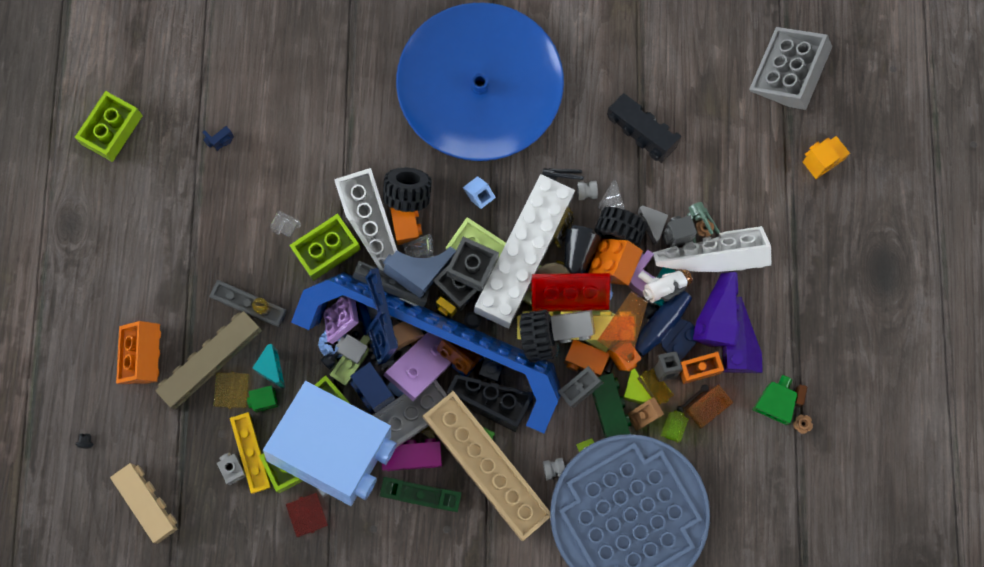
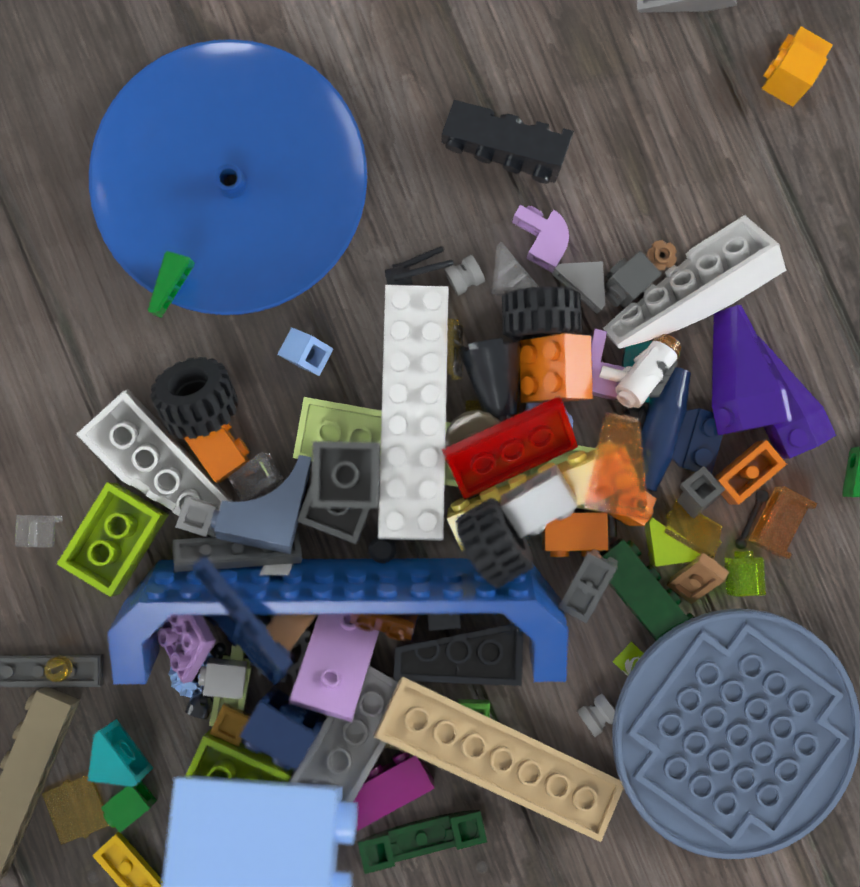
camera: 20 degrees left, 10 degrees up
(341, 378) = (230, 724): none -> pearl gold tile
(377, 253) = (195, 516): none -> light grey plate
(426, 118) = (170, 278): none -> green slope
(445, 307) = (334, 548): yellow plate -> none
(644, 189) = (550, 233): none -> lavender brick
(700, 213) = (645, 235): sand green plant -> none

